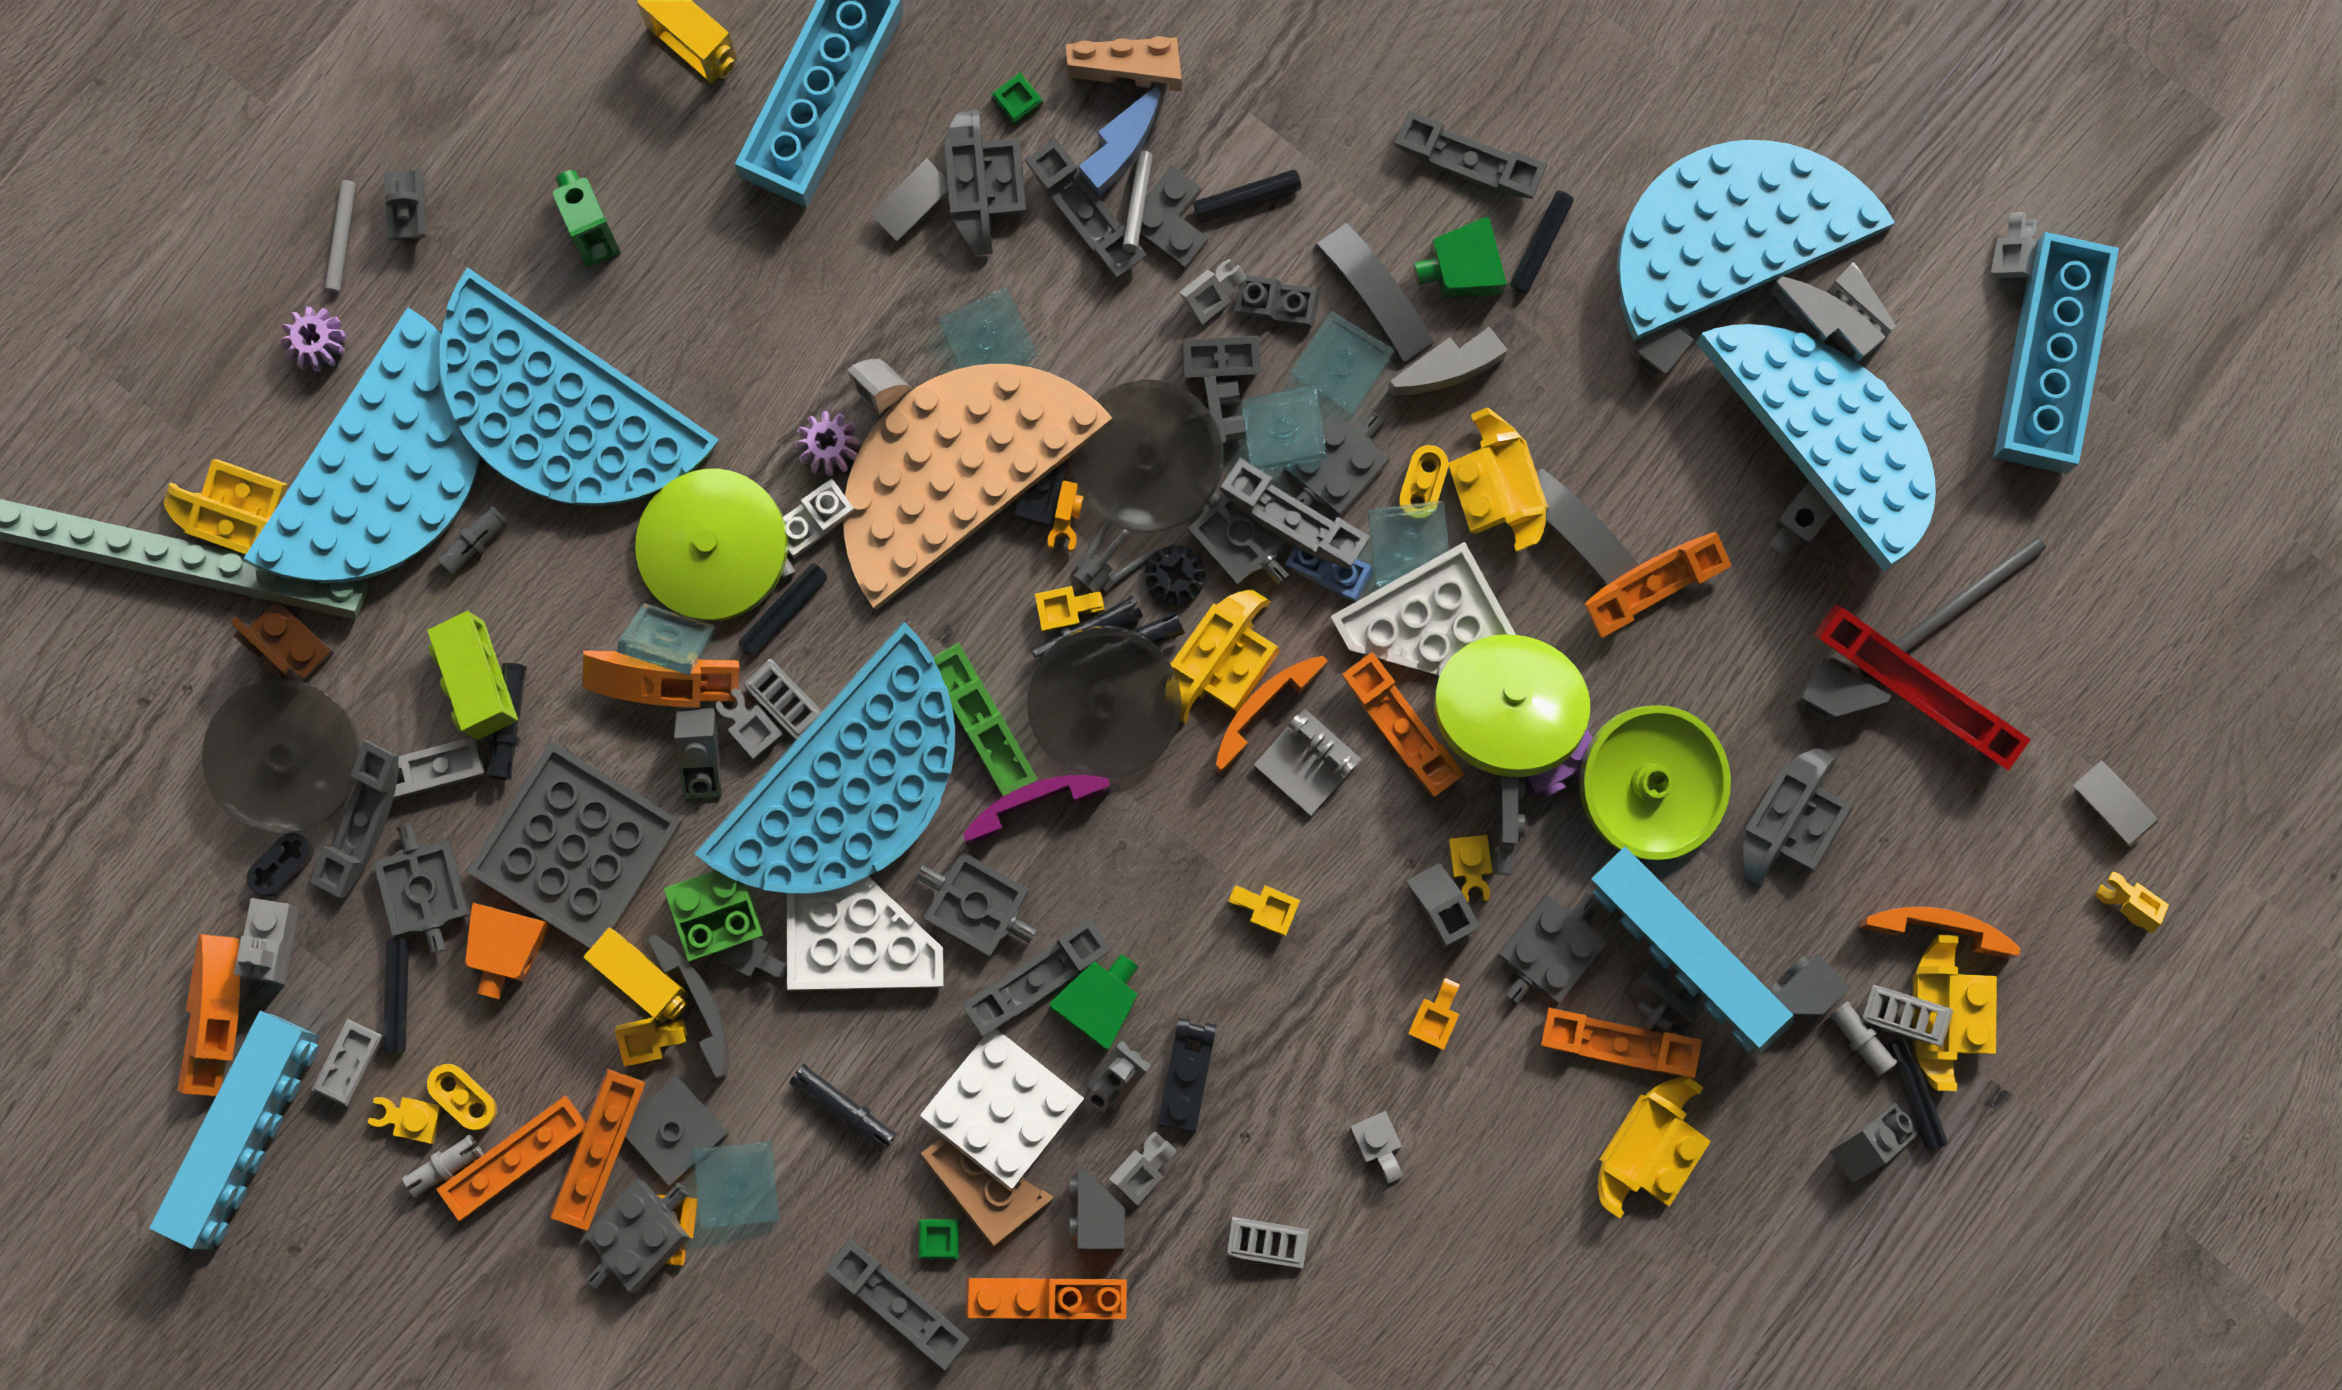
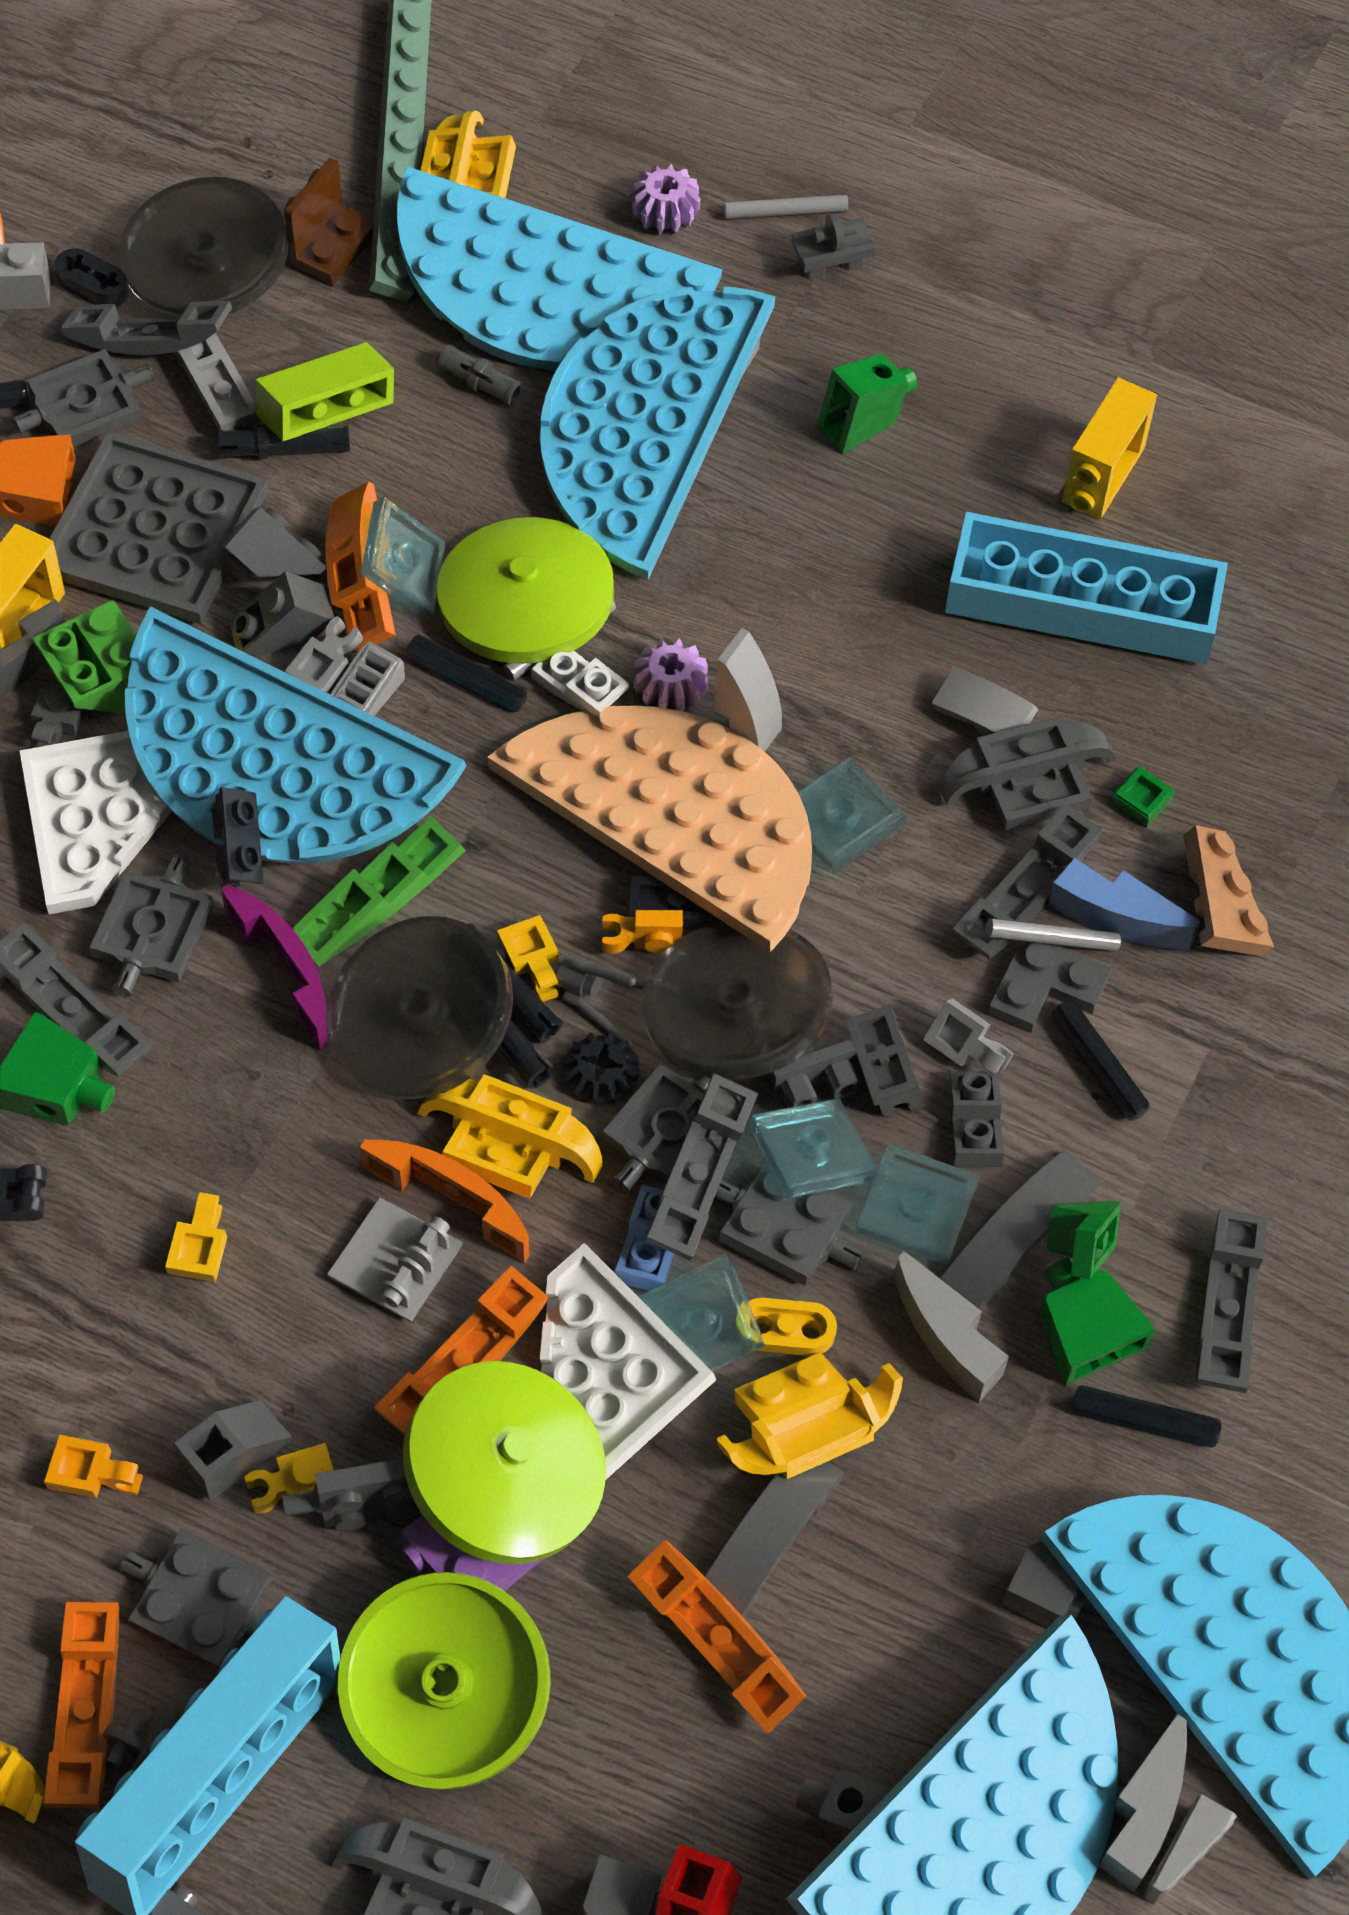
camera: 80 degrees right, 20 degrees down
(636, 751) = (267, 550): none -> dark grey slope
(943, 821) = (237, 824): none -> black hinge
(1399, 245) = (1084, 1233): none -> green slope

